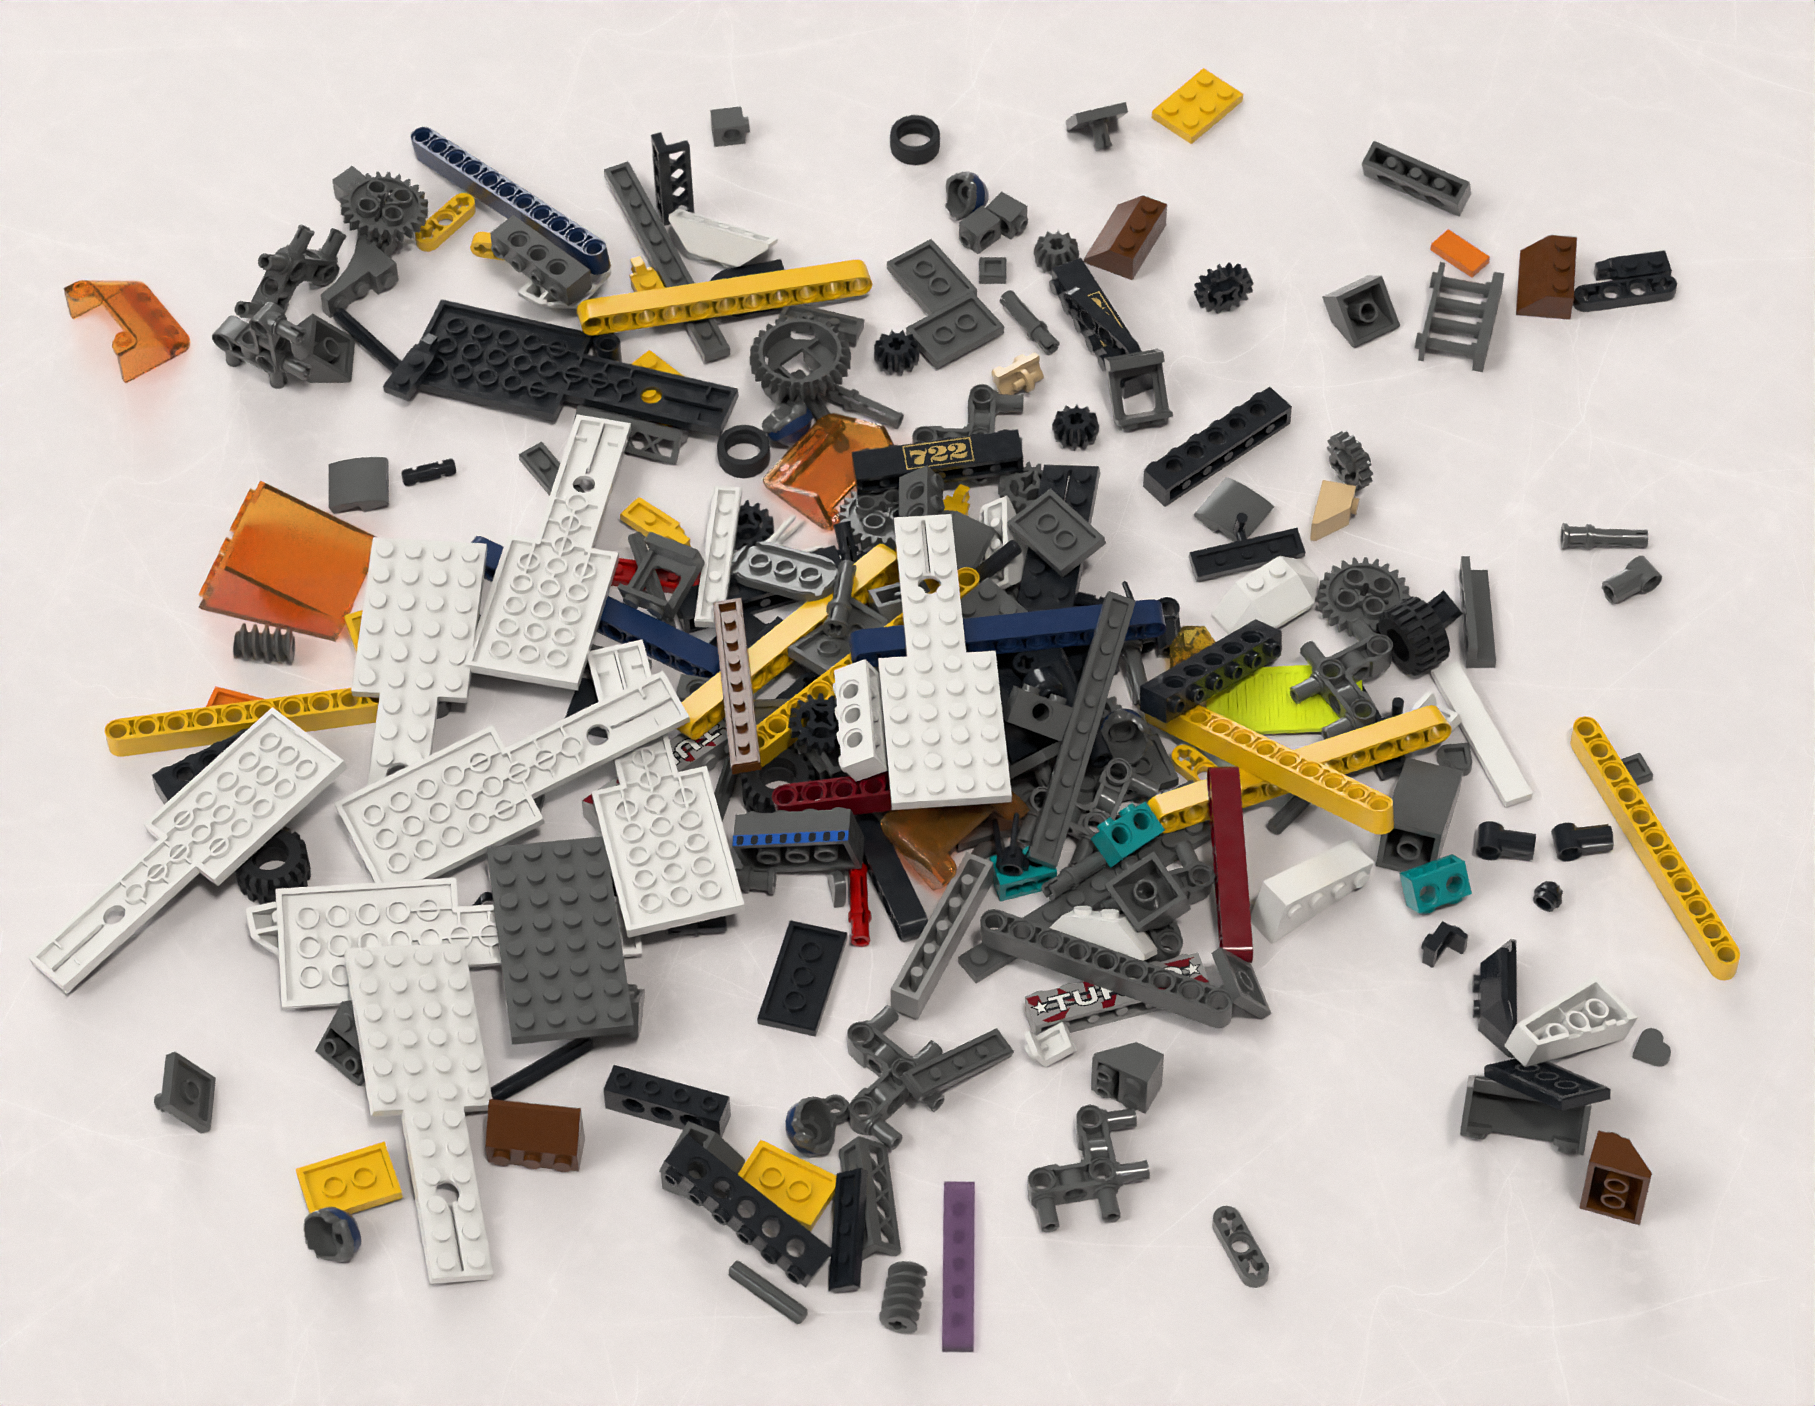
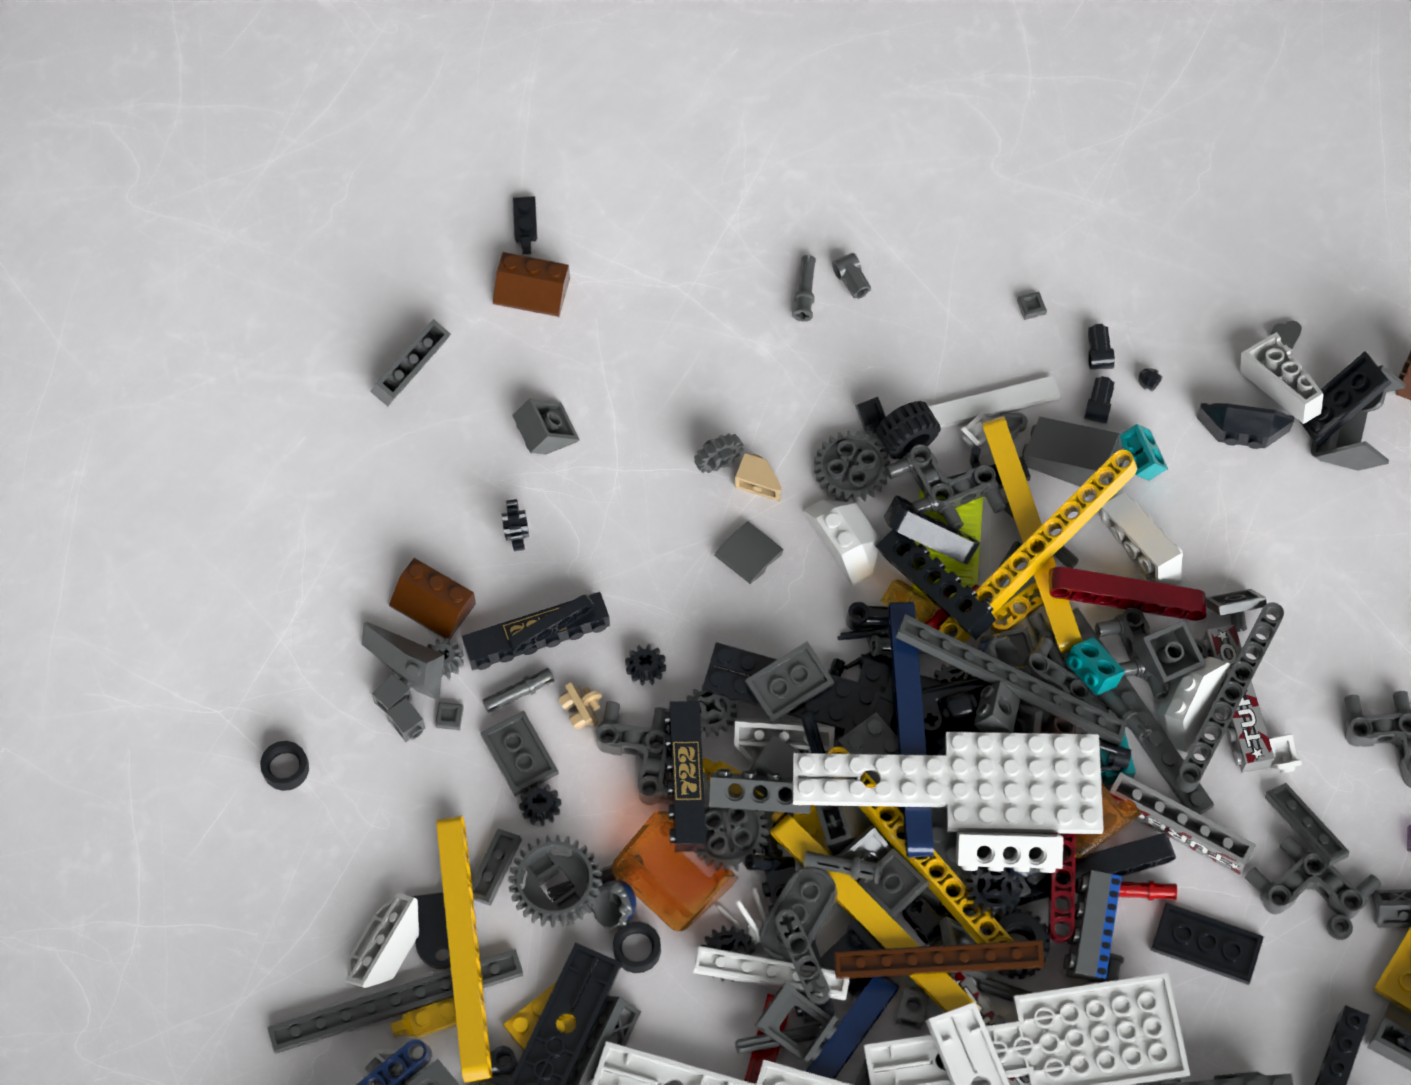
camera: 85 degrees left, 10 degrees up
(648, 518) = (714, 1031): yellow hinge -> none
(663, 170) = (325, 980): black fence -> none
(729, 126) = (238, 930): dark grey brick -> none
(732, 569) = (803, 956): none -> dark grey beam
(811, 1126) = (1366, 945): dark grey hair -> none
(837, 888) = (1126, 904): dark grey tile -> none
(890, 418) = (602, 830): dark grey pin -> none
(930, 277) = (455, 767): dark grey plate -> none
(965, 194) = (366, 727): dark grey hair -> none
(1039, 217) = (408, 659): none -> dark grey wedge
(1097, 121) = (295, 605): dark grey tile -> none
(1128, 1075) = (1324, 693): dark grey slope -> none
(1131, 365) = (605, 605): dark grey window -> none
(1197, 106) = (283, 526): yellow plate -> none
(1216, 446) = (651, 507): black brick -> none
(1245, 552) = (797, 546): black plate -> none
(1275, 657) = (908, 521): none -> beam
(1443, 937) = (1193, 460): black bracket -> none
(1460, 253) = (489, 346): orange tile -> none
(1476, 616) = (865, 388): dark grey fence -> none
(1481, 331) = (561, 333): dark grey fence -> none
(1625, 296) = (554, 233): black beam -> none
(1657, 858) = (1101, 308): yellow beam -> none

